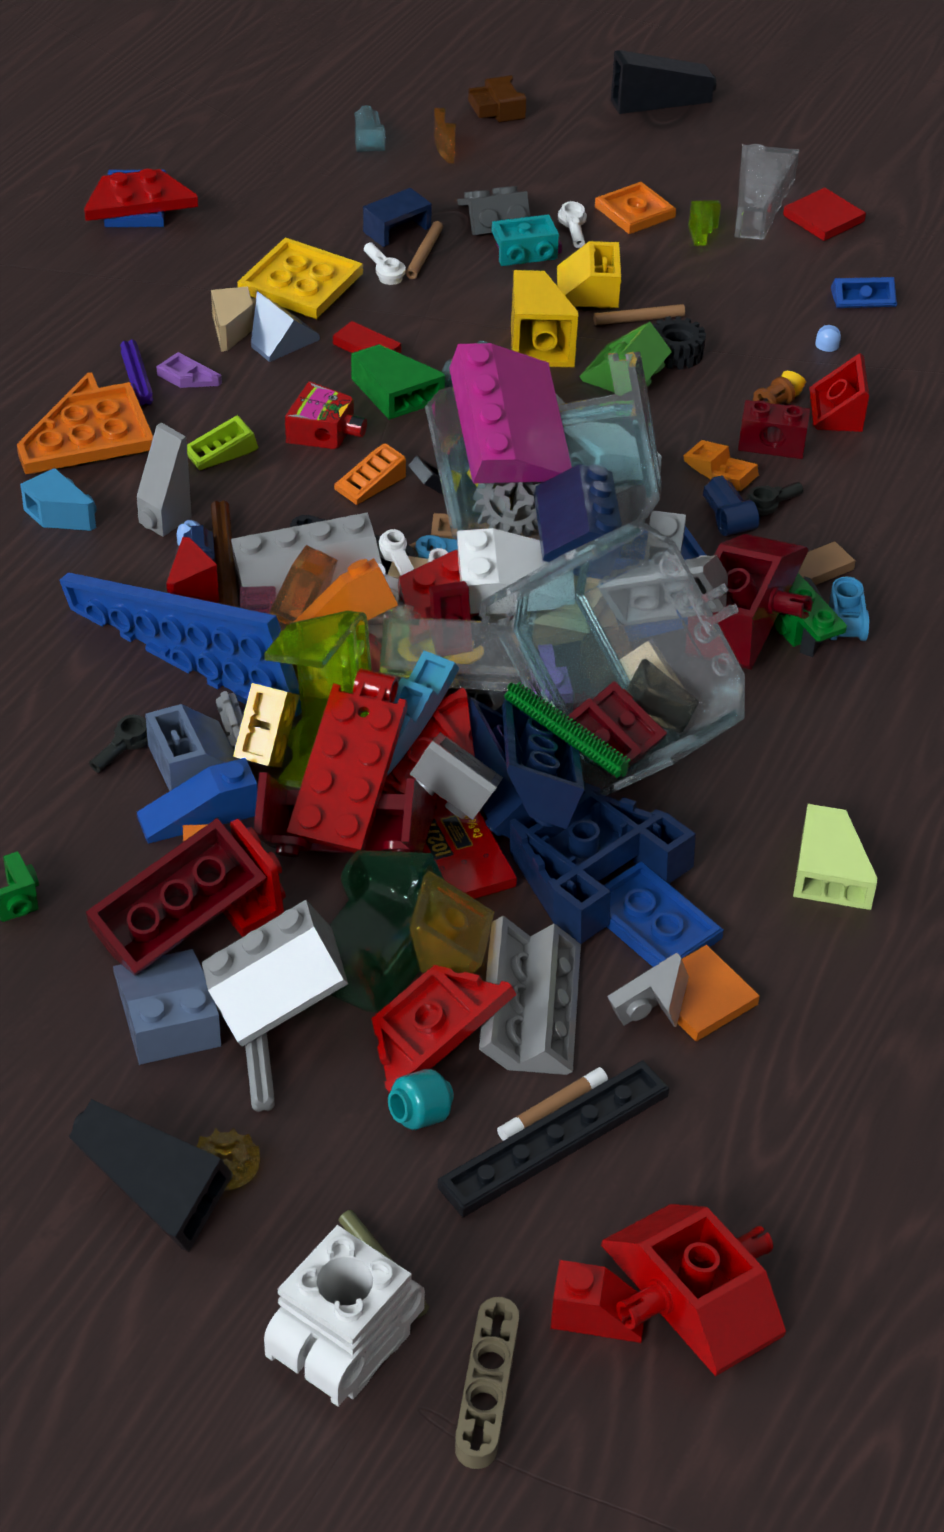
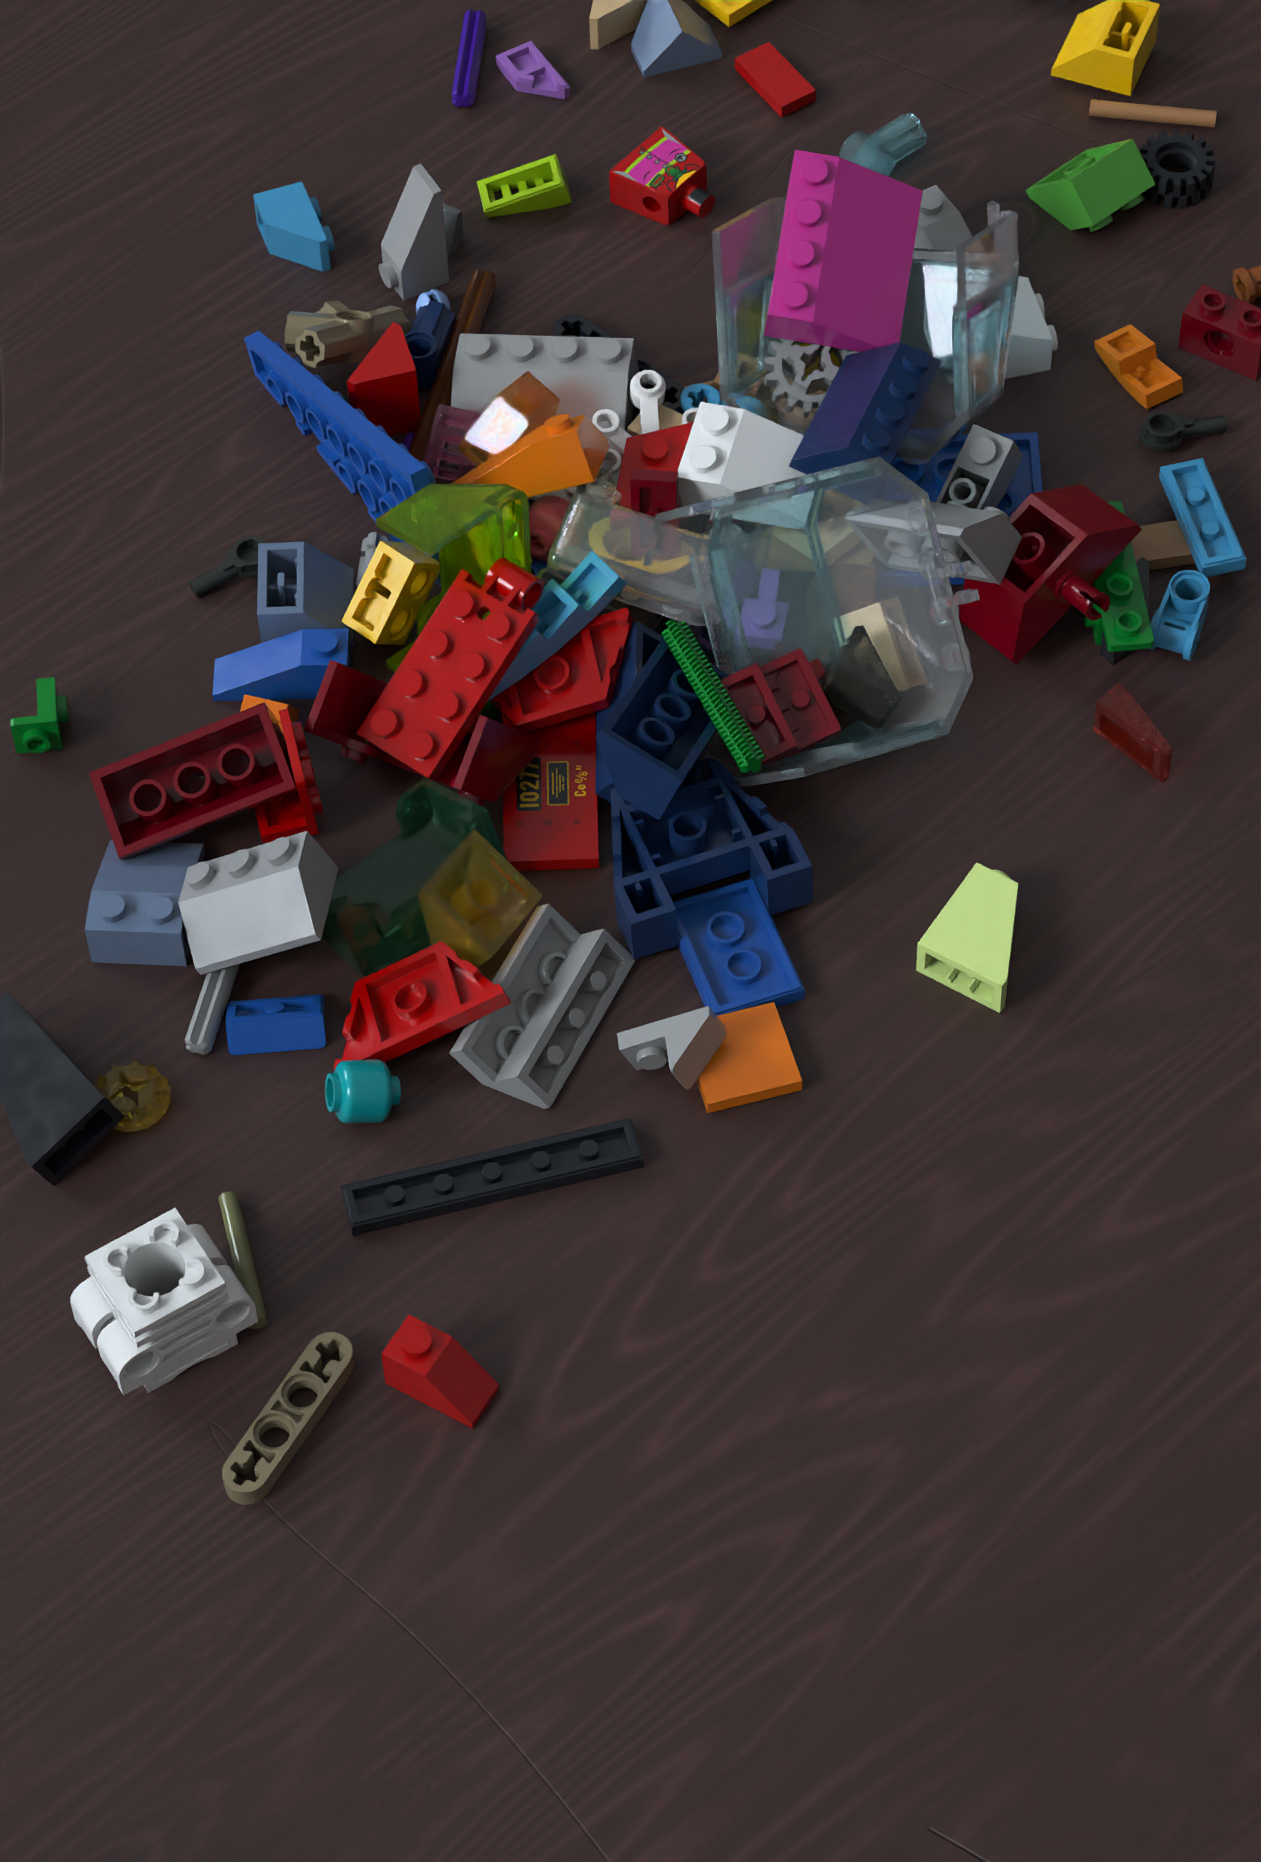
camera: 25 degrees right, 10 degrees up
(86, 428) = (372, 127): orange wing -> none
(135, 560) = (339, 333): none -> dark tan piece
(319, 1070) = (276, 1024): none -> blue slope
(383, 459) = (683, 266): orange slope -> none
(394, 380) = (767, 138): green slope -> none
(455, 777) = (562, 715): light grey slope -> none
(542, 319) = (995, 102): yellow slope -> none
(553, 1103) = (509, 1137): medium nougat bar -> none
(699, 1282) = (553, 1386): red slope -> none
(731, 511) = (1113, 437): dark blue piece -> none
(824, 545) = (1202, 517): none -> dark azure tile
(843, 689) = (1132, 732): none -> clear red slope

